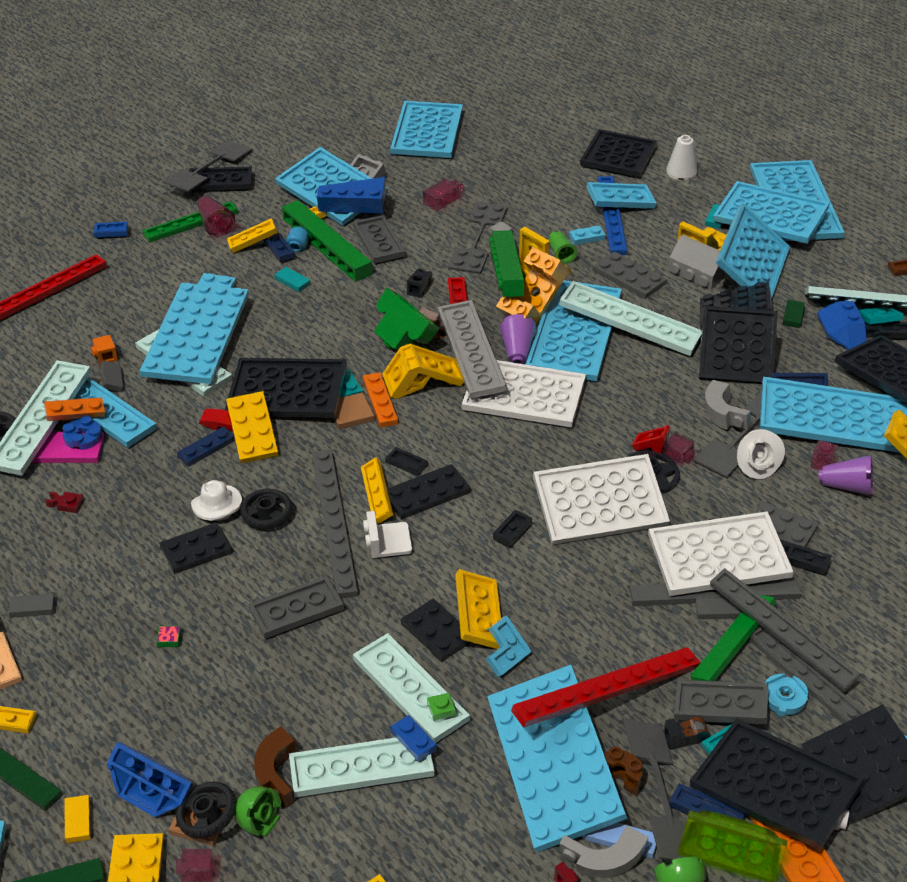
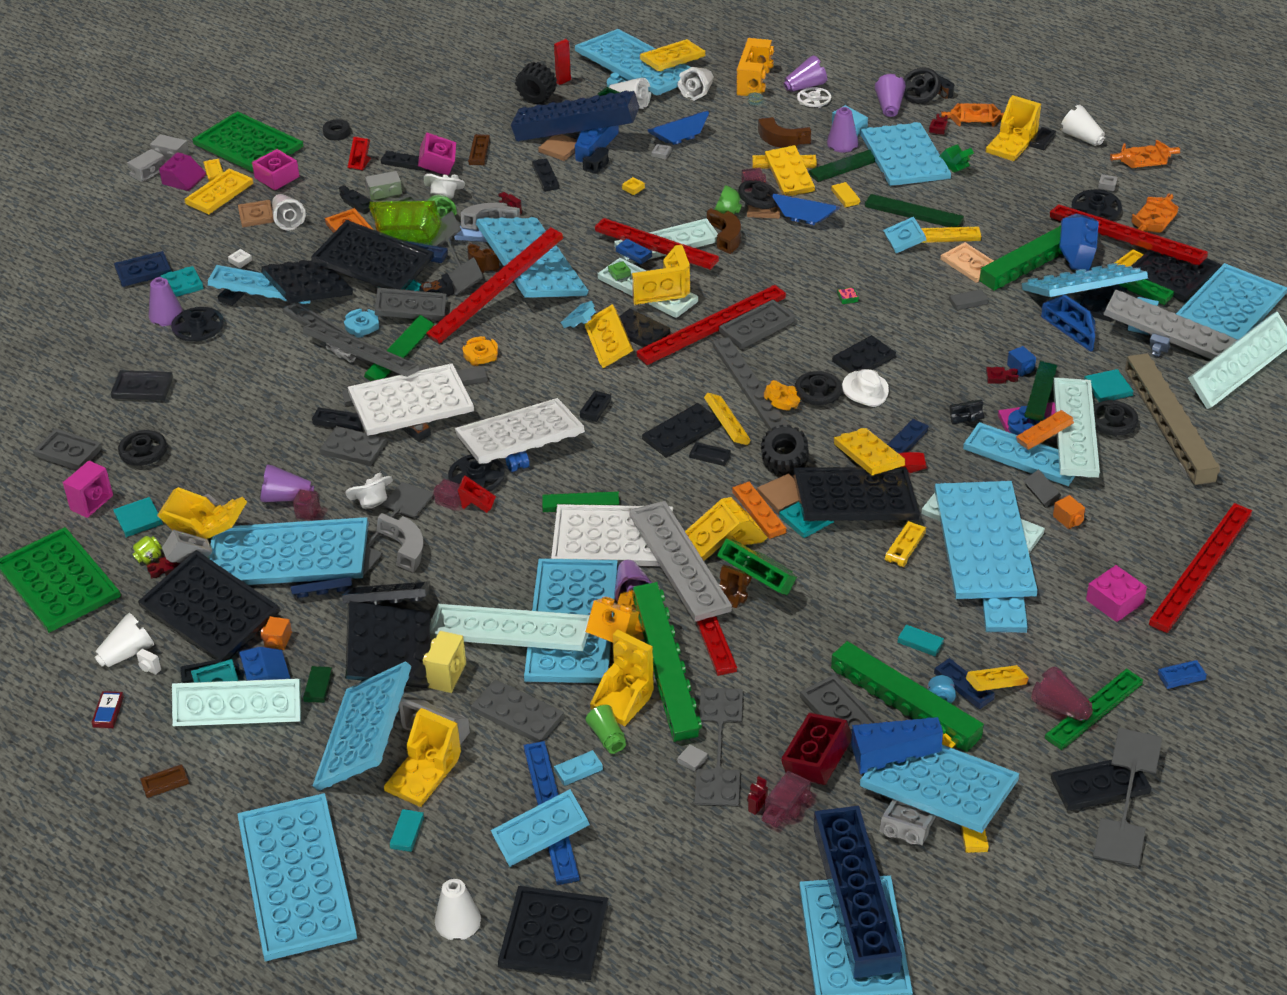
camera: 170 degrees right, 0 degrees up
(35, 505) = (1021, 360): none -> blue brick
(42, 460) = (1040, 391): none -> dark green tile
(47, 709) = (904, 235): none -> medium azure plate
(117, 281) = (1116, 593): none -> dark pink brick
(130, 455) = (966, 411): none -> black hips
(264, 346) = (905, 543): none -> yellow plate
(308, 494) = (781, 395): none -> light orange plate
(335, 432) = (780, 438): none -> black tyre
(346, 616) = (706, 326): none -> red plate
(382, 750) = (655, 242): none -> red tile
(386, 538) = (706, 381): white bracket -> none
(390, 645) = (664, 283): none -> yellow bracket
(409, 207) = (817, 747): none -> dark red brick
(418, 131) = (857, 892): none -> dark blue brick
(418, 282) = (767, 652): black leg -> none
(462, 195) = (757, 796): none -> dark red plate
(548, 431) = (550, 501): none -> green tile
(634, 634) = (488, 351): none -> light orange plate
(686, 296) = (445, 661): none -> light yellow brick
(785, 213) = (333, 821): medium azure plate -> none
(834, 346) = (276, 633): none -> orange brick

